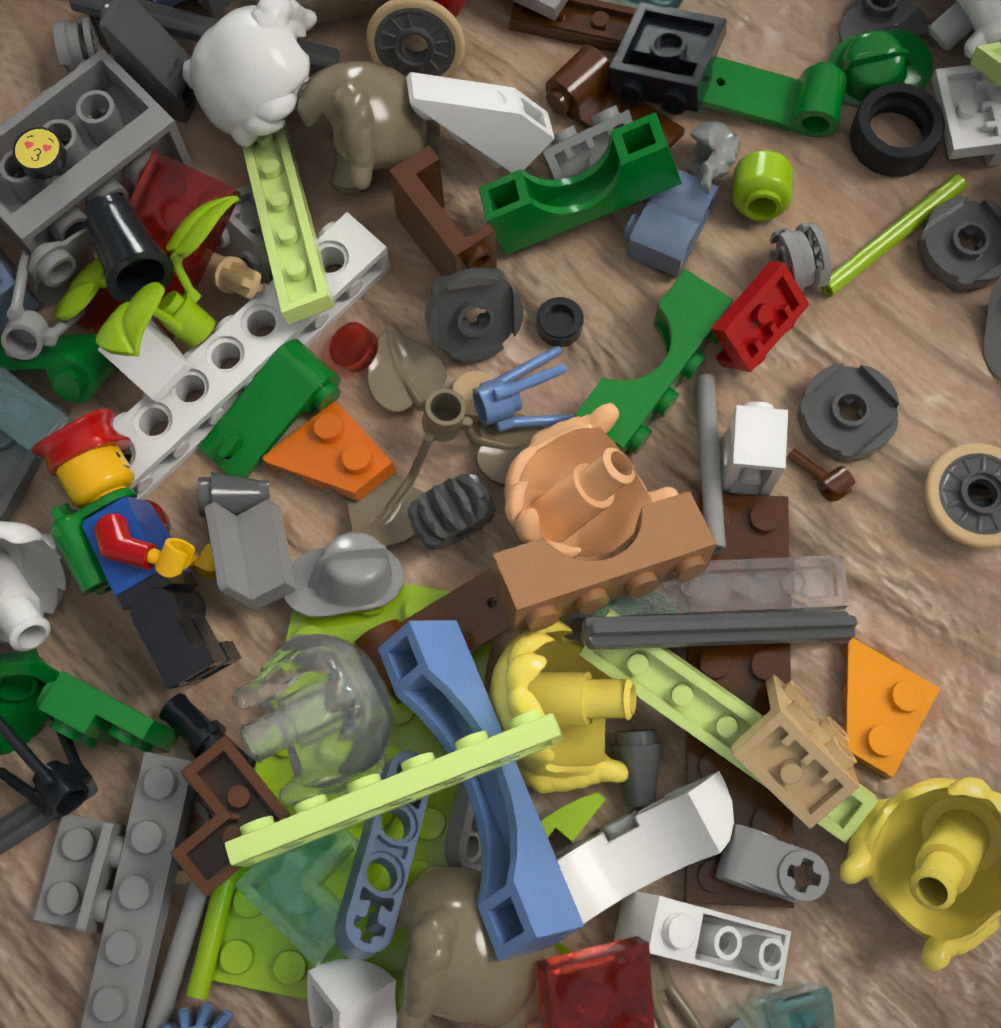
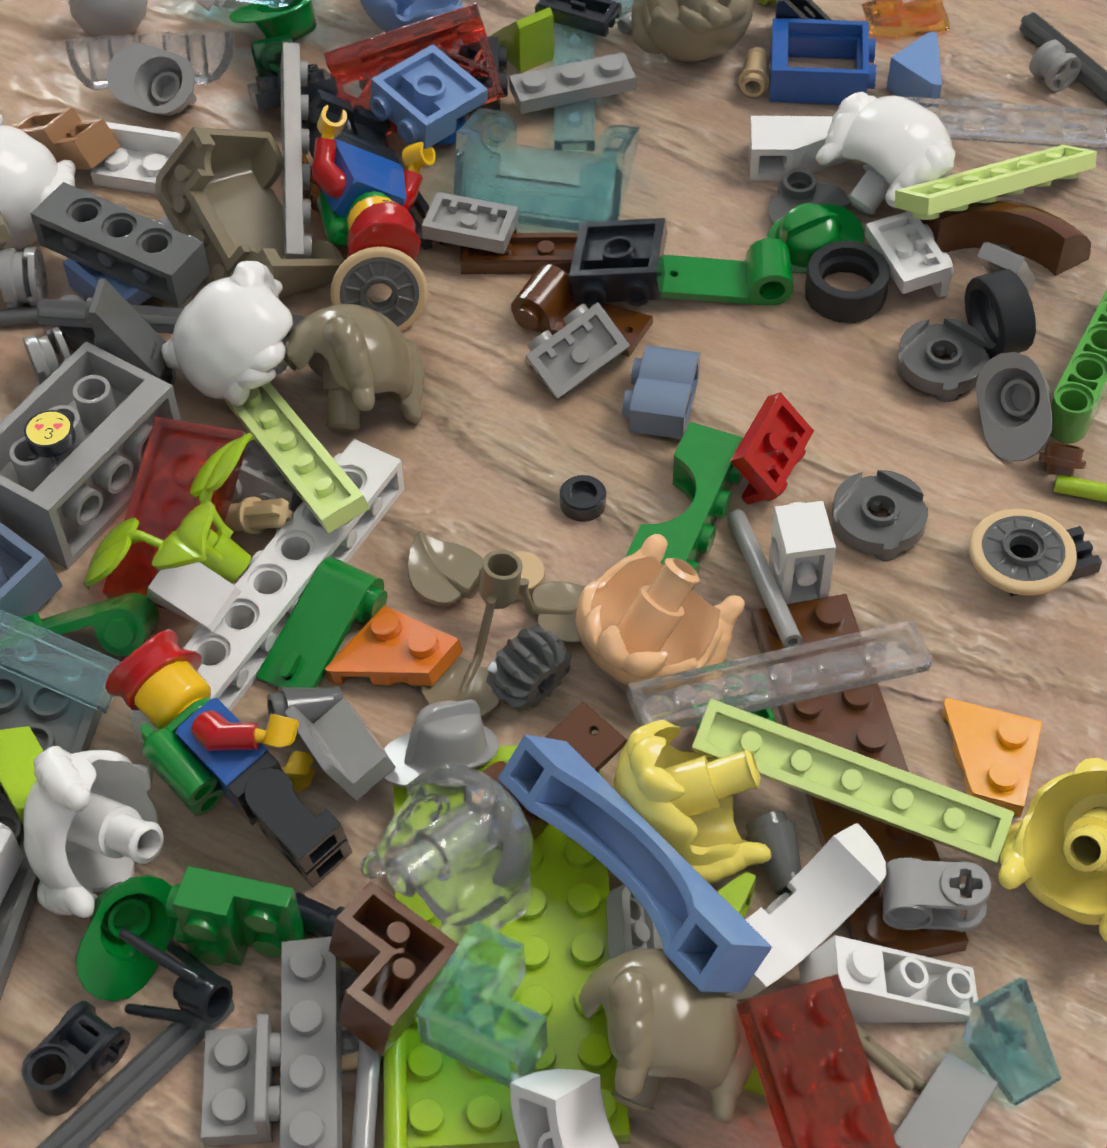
camera: 15 degrees left, 20 degrees down
(27, 329) = (68, 590): light grey plant -> none
(56, 262) = (79, 536): light grey plate -> none
(125, 247) = (149, 496): black plant -> none
(353, 347) = (389, 557): clear red tile -> none
(373, 796) = (542, 882): yellowish green plate -> none
(396, 858) = (567, 959): sand blue beam -> none
(419, 208) = (445, 439): reddish brown panel -> none
(466, 290) = (479, 485): dark grey plate -> none
(487, 116) = (471, 333): white slope -> none
(500, 397) = (549, 564): medium blue plant -> none
(535, 209) = (616, 346): green arch -> none
(543, 584) = (644, 683): medium nougat arch -> none
(716, 152) = (687, 326): light grey piece -> none
(716, 629) = (816, 697): dark grey axle -> none
(763, 185) = (739, 347): lime head -> none
(798, 754) = (926, 788): tan bracket -> none
(804, 254) = (797, 389): light grey wheel -> none
(831, 485) = (882, 578): reddish brown hand -> none
(893, 234) = (869, 369): lime piece -> none

